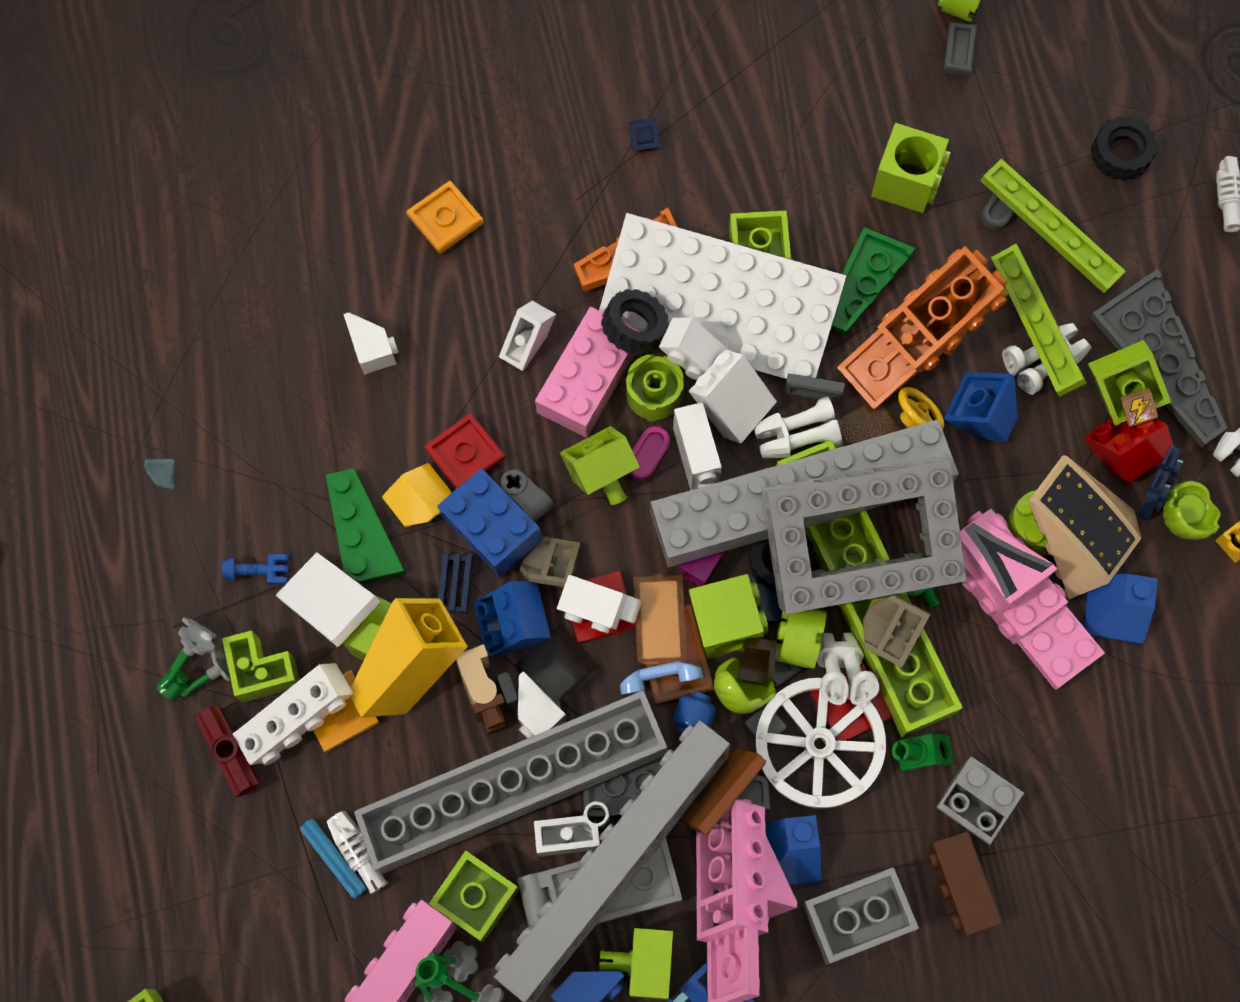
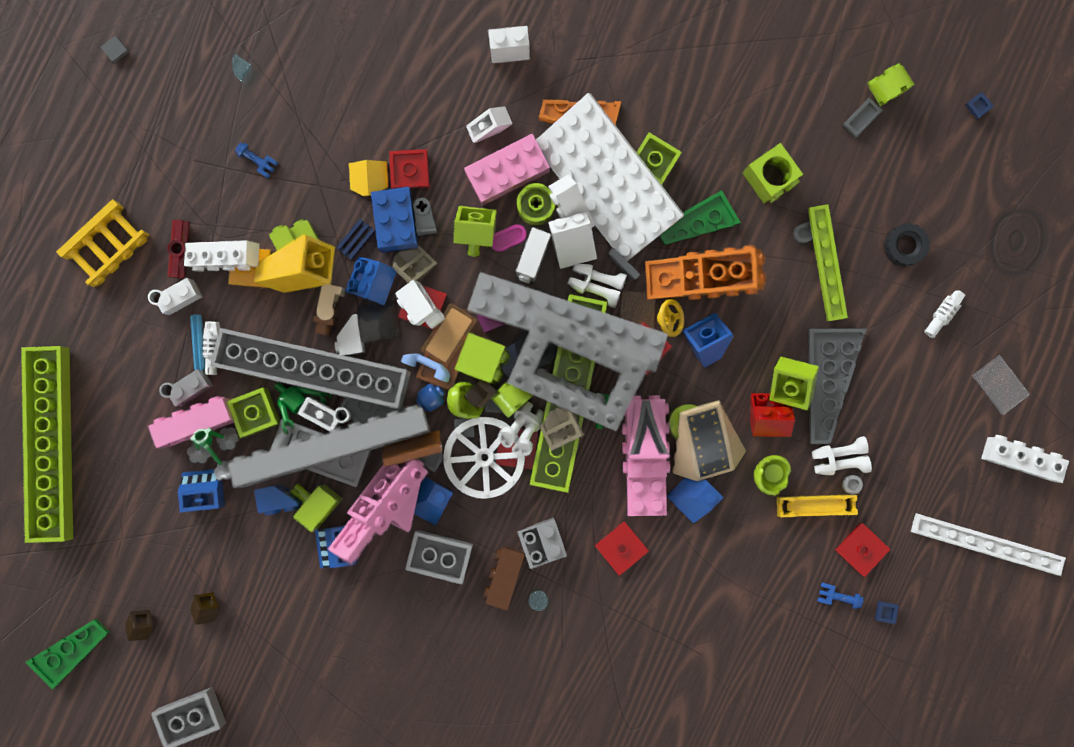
camera: 30 degrees right, 15 degrees up
(96, 792) = (85, 236): none -> yellow fence
(197, 640) = (193, 182): plant -> none
(254, 674) = (216, 215): lime brick -> none
(264, 815) = (176, 296): none -> white hinge
(328, 599) = (278, 204): white tile -> none
(359, 928) = (187, 388): none -> light grey hinge
(360, 535) = (323, 178): green wing -> none
(371, 344) = (399, 72): white slope -> none
(445, 217) = (489, 16): light orange plate -> none
(488, 224) = (509, 44): none -> white brick
(508, 690) = (344, 316): dark grey tile -> none
(519, 844) = (293, 400): none -> green piece
(643, 305) = (562, 157): black tyre -> none
(644, 134) = (639, 46): dark blue plate -> none
(922, 751) = (534, 498): green bracket -> none
(1028, 885) = (538, 600): none -> clear light blue tile
(1032, 378) = (779, 328): white piece -> none
(1039, 320) = (774, 312): lime plate -> none
(1080, 739) = (621, 548): none -> red plate
(1139, 407) = (787, 400): tile -> none
(1161, 483) = (762, 451): dark blue plate -> none

